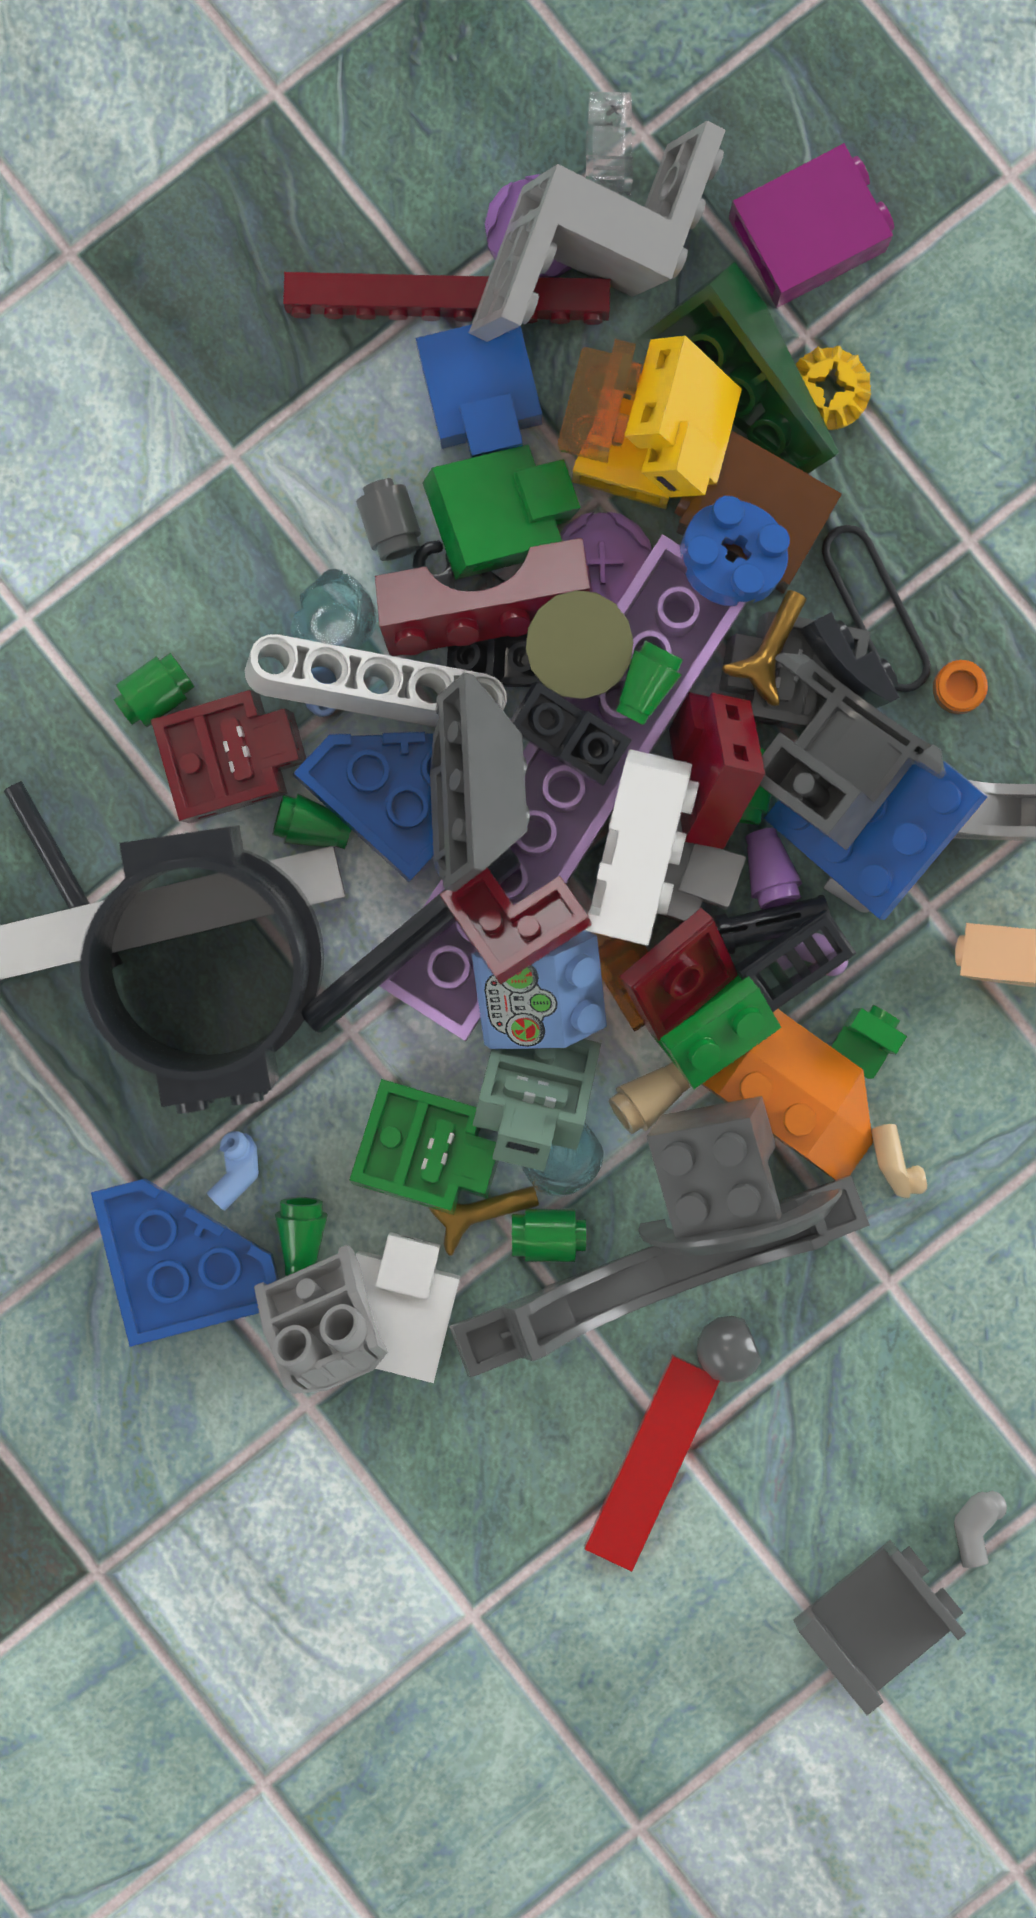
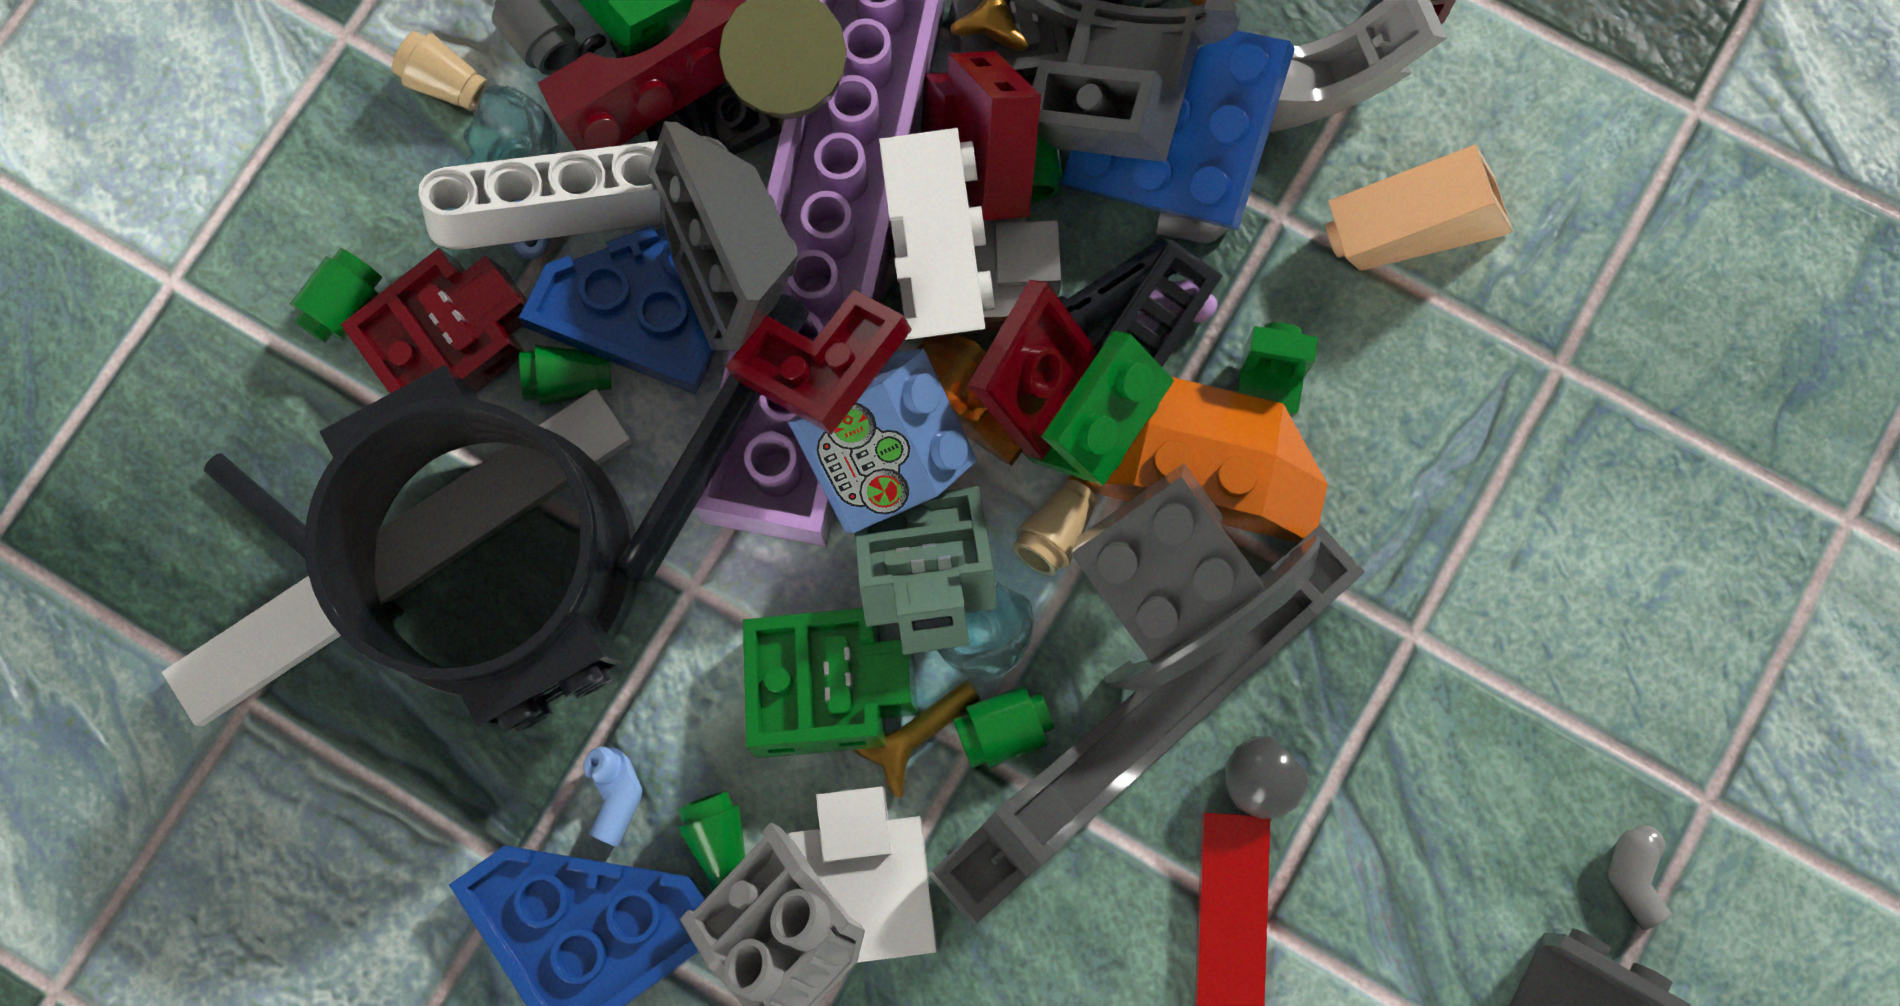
camera: 20 degrees left, 10 degrees down
(298, 527) = (436, 70): none -> tan cone
(569, 733) = (810, 155): black slope -> none
(648, 682) = (874, 63): green cone -> none
(771, 870) = (1091, 233): medium lavender cone -> none
(892, 1164) = (1358, 495): tan arm -> none

